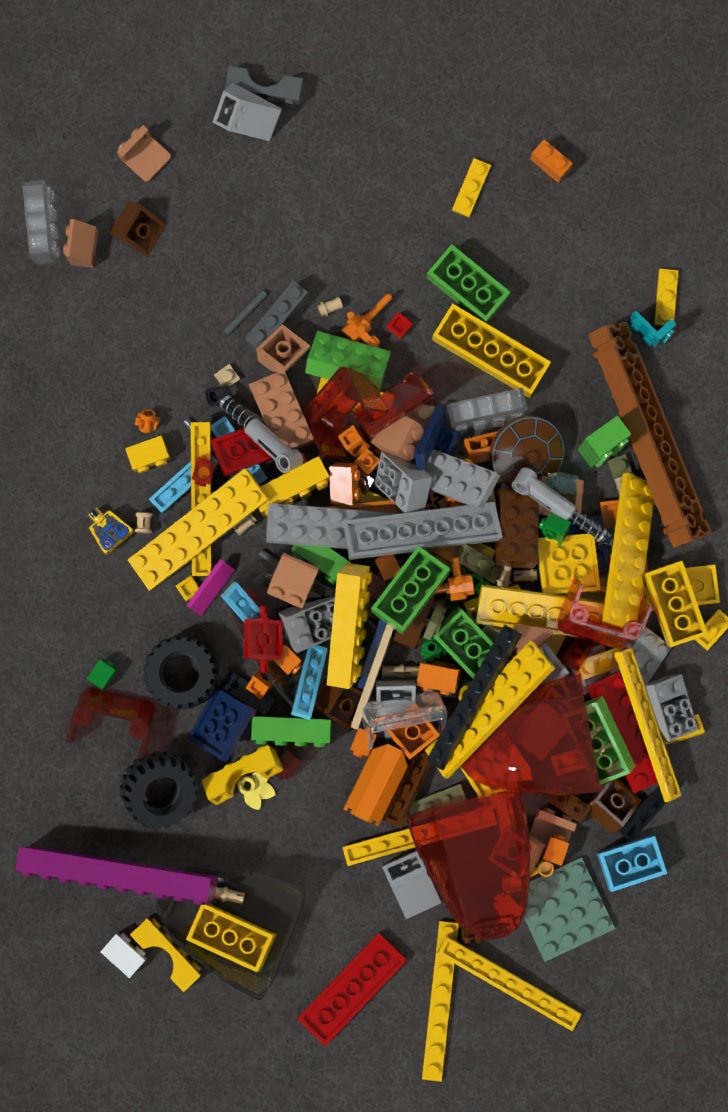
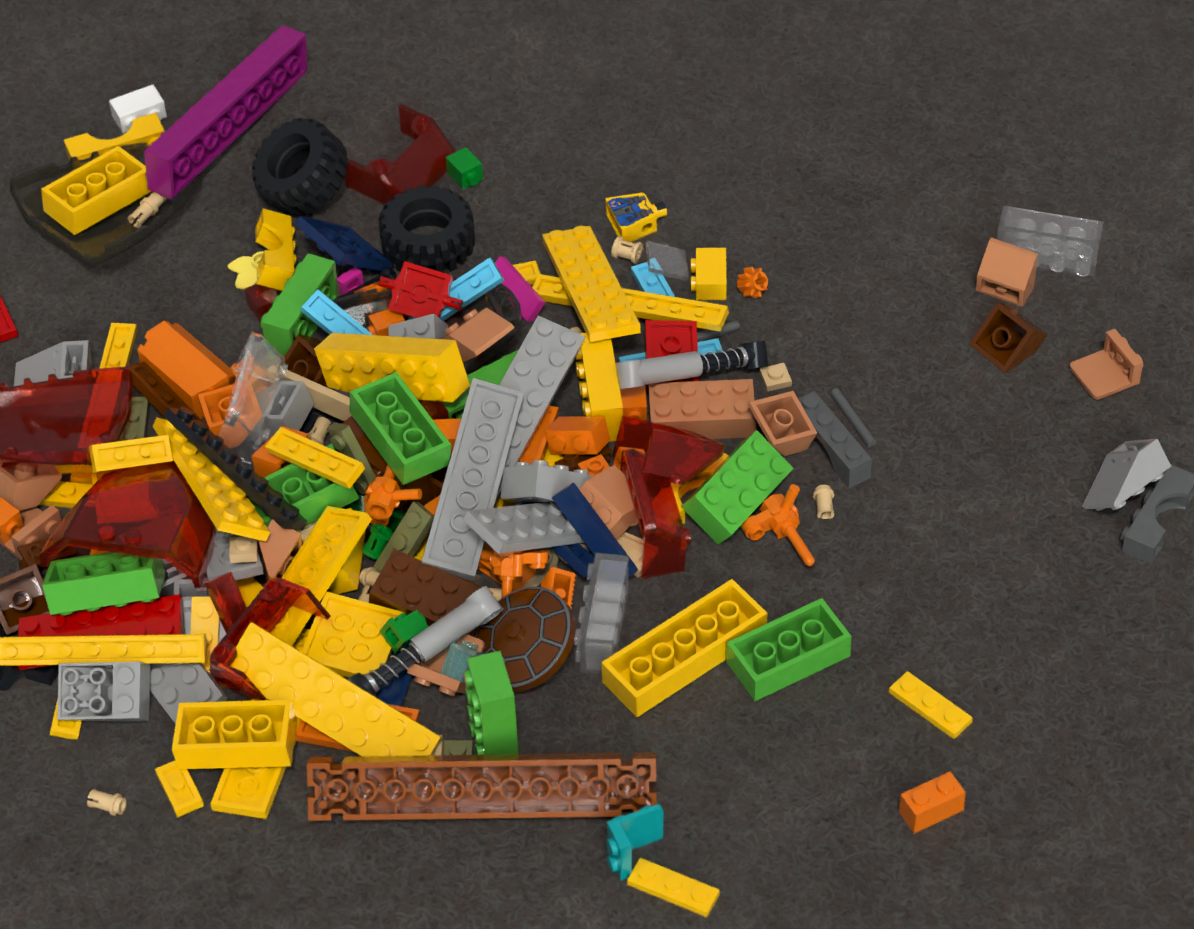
camera: 110 degrees right, 35 degrees down
(145, 490) = (667, 261): none -> clear piece
(210, 465) = (659, 299): clear red brick -> none
(399, 325) = (766, 566): red plate -> none
(453, 640) = (315, 457): none -> yellow plate
(496, 769) = (130, 453): none -> yellow plate

